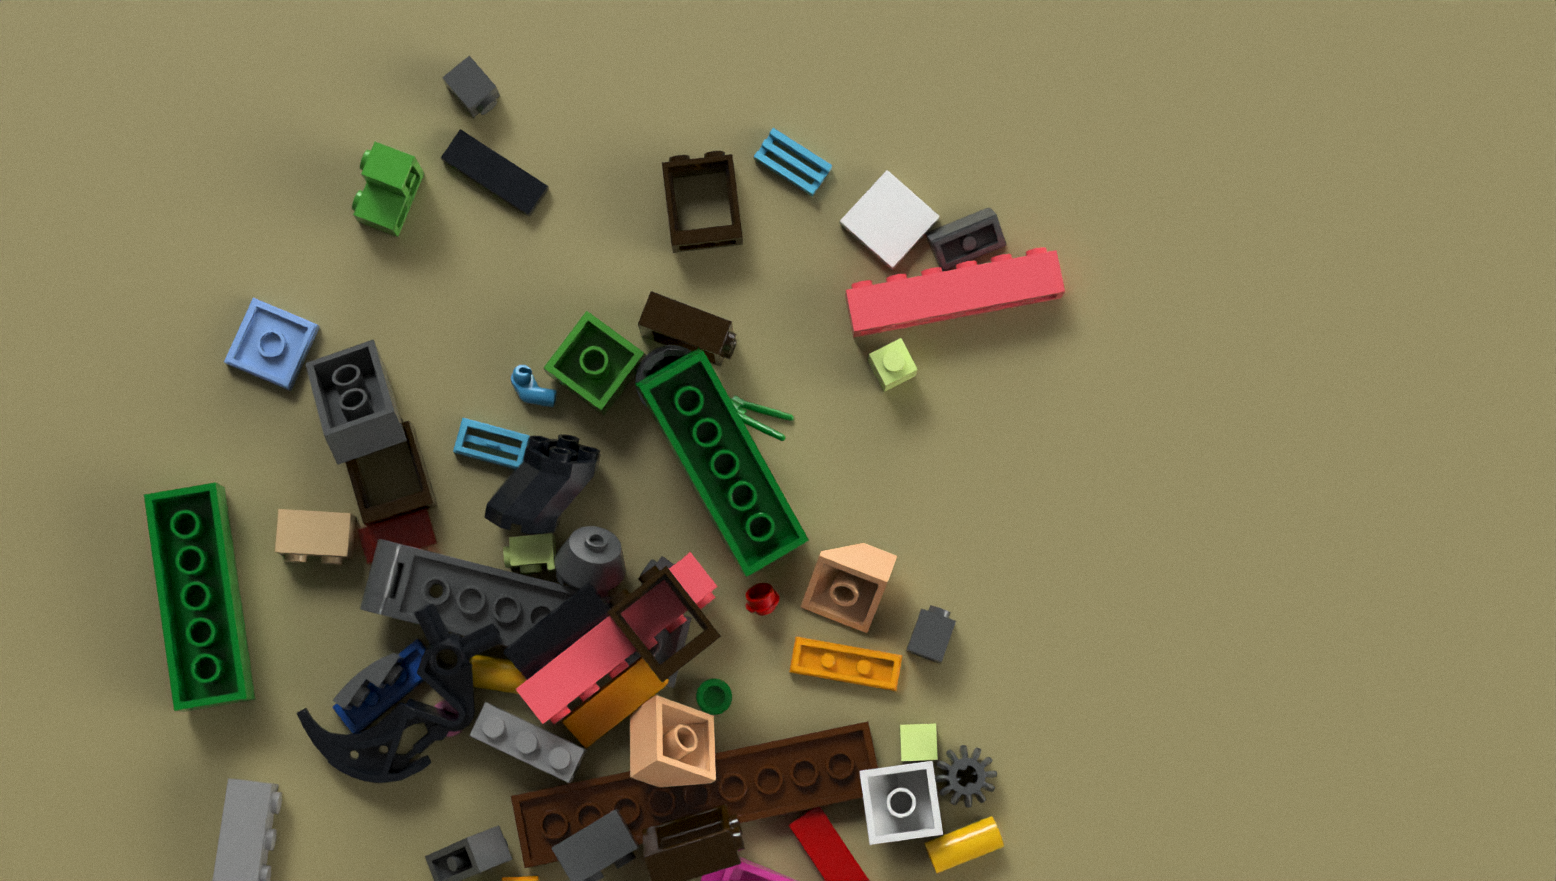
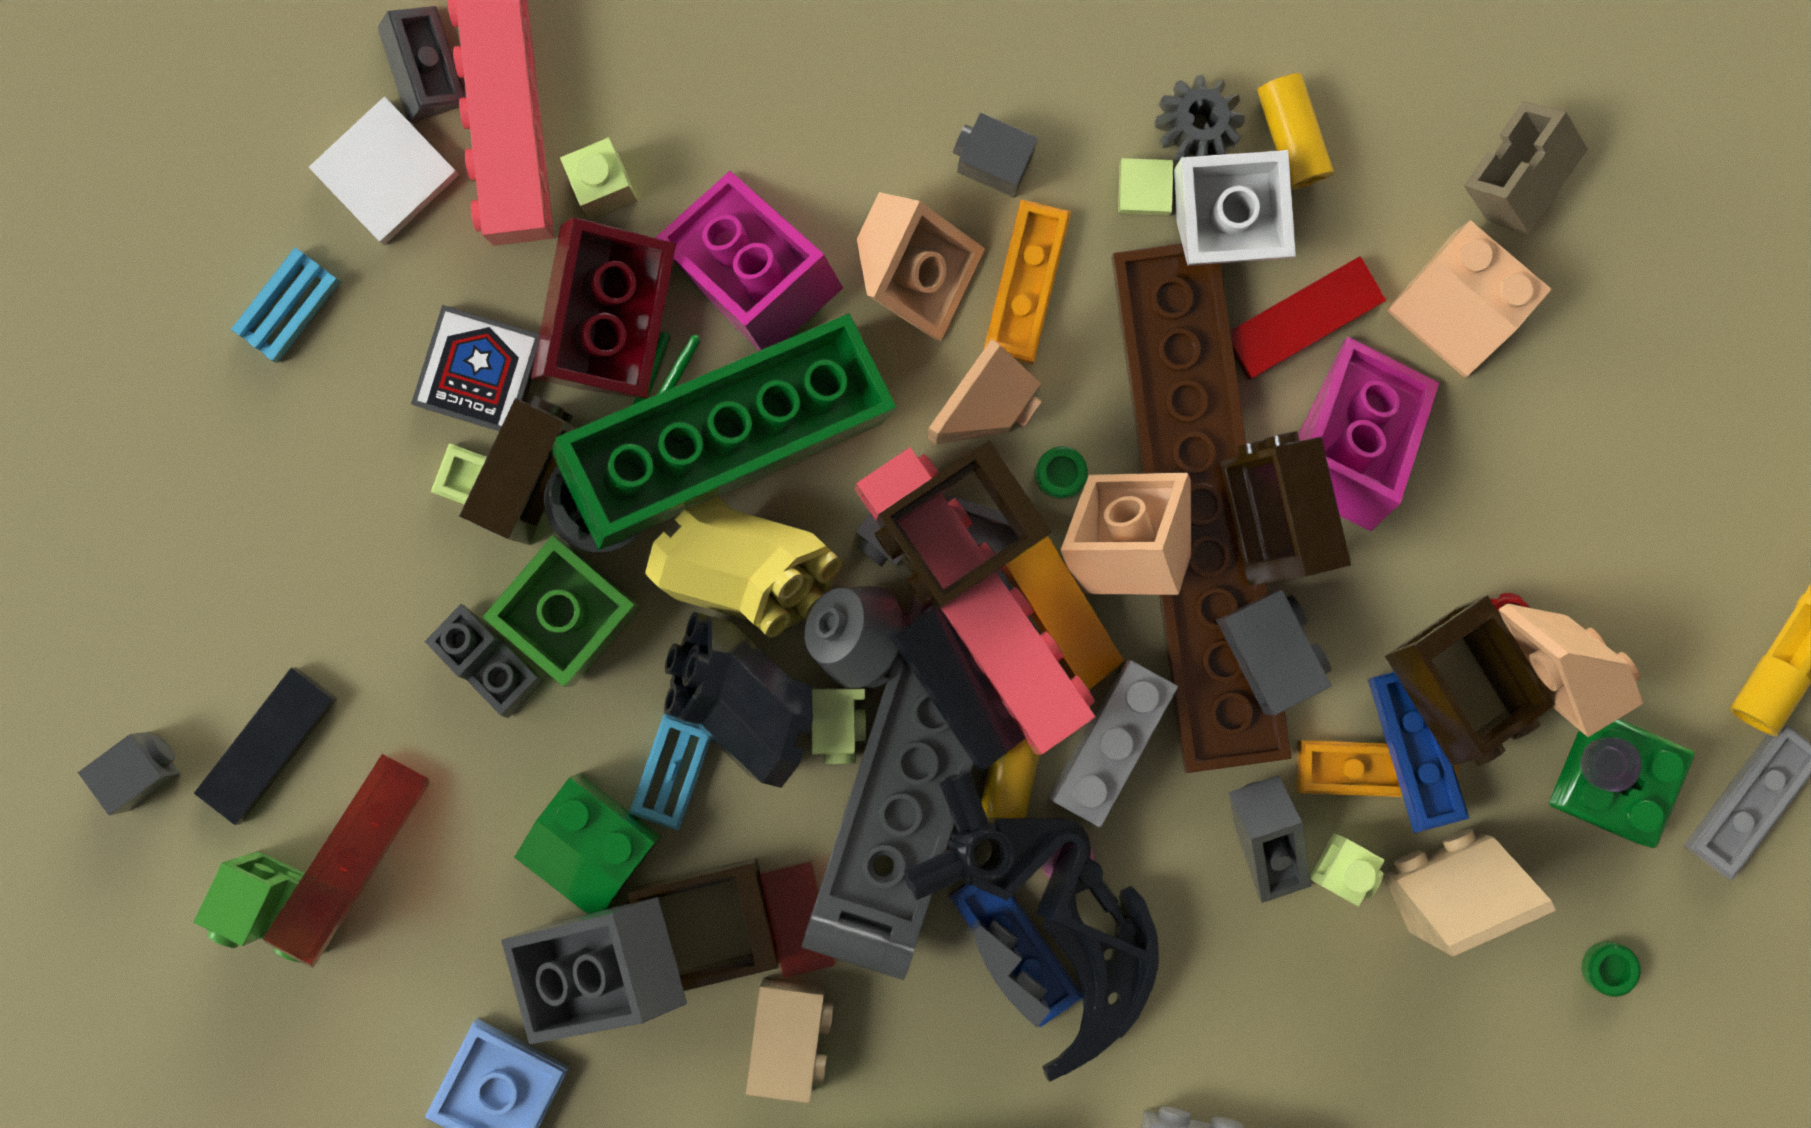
camera: 90 degrees left, 5 degrees up
(421, 234) = (346, 861): none -> clear red tile
(439, 391) = (586, 845): none -> green slope
(528, 389) = (595, 713): dark azure arm -> none
(560, 313) = (484, 661): none -> dark grey slope
(632, 482) = (743, 566): none -> light yellow brick
(685, 287) = (457, 473): none -> yellowish green tile
(703, 237) = (388, 430): dark brown window -> none
(757, 293) = (475, 368): none -> tile
(758, 640) = (987, 399): none -> light nougat slope
(761, 599) = (926, 392): red plate -> none
(801, 374) = (603, 309): none -> dark red slope
(843, 470) = (751, 262): none -> dark pink slope

